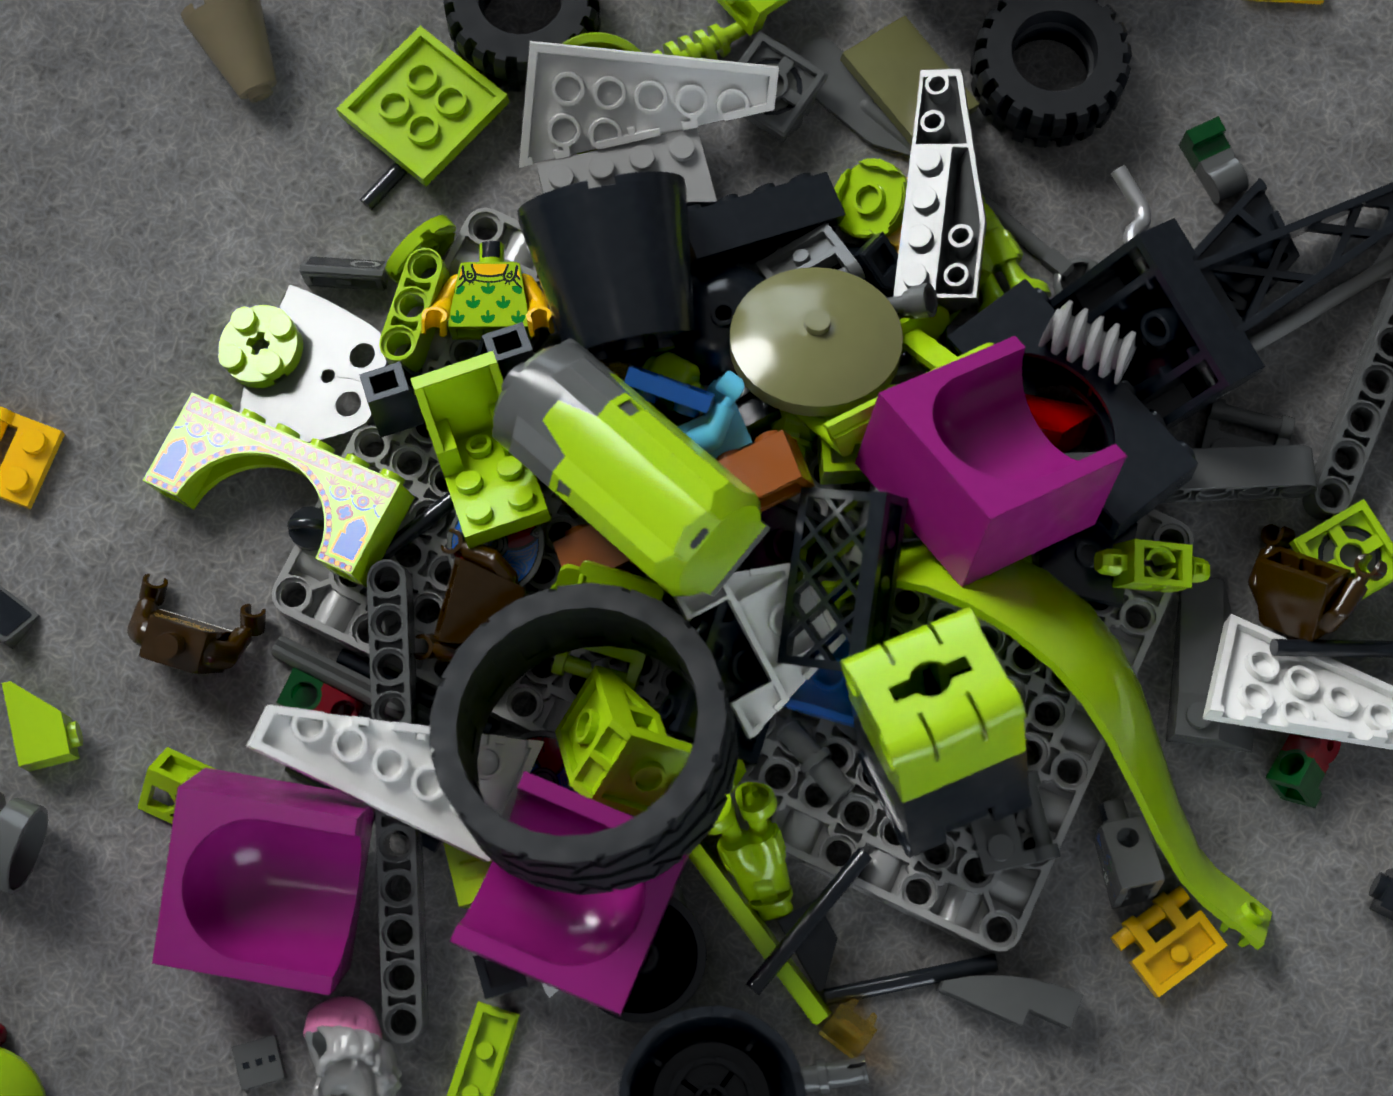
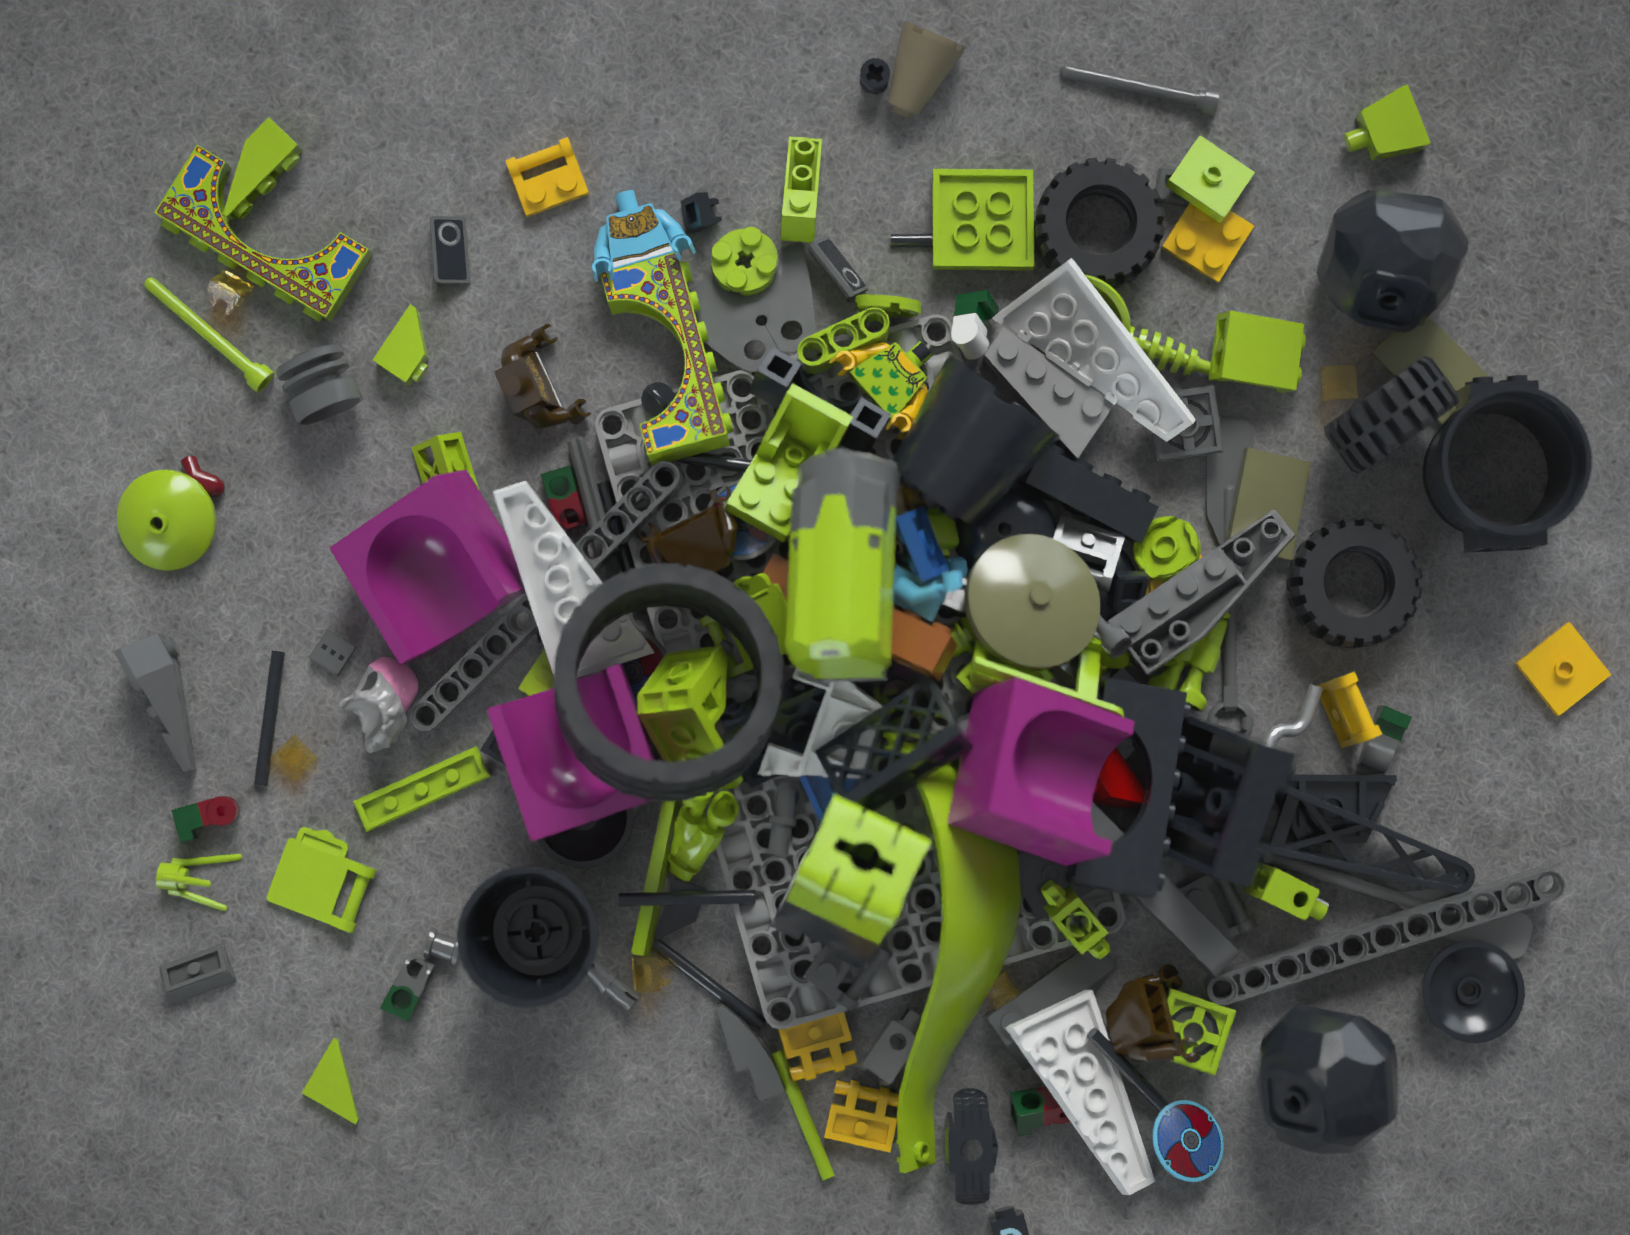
camera: 45 degrees right, 10 degrees up
(141, 418) = (636, 236): none -> medium azure torso
(175, 347) = (697, 212): none -> black tile
(214, 95) = (877, 66): none -> black bush
(245, 241) = (801, 189): none -> lime slope
(500, 186) = (971, 322): none -> leg
(1050, 919) = (814, 1036): none -> yellow plate
(1090, 341) = (1174, 768): light grey piece -> none
(1120, 1001) = (803, 1116): none -> lime bar
(1160, 702) = (1002, 991): none -> clear yellow wheel
(1163, 177) = (1347, 711): none -> yellow plate
(1268, 836) = (970, 1122): none -> black piece
(1290, 363) = (1287, 894): none -> lime torso

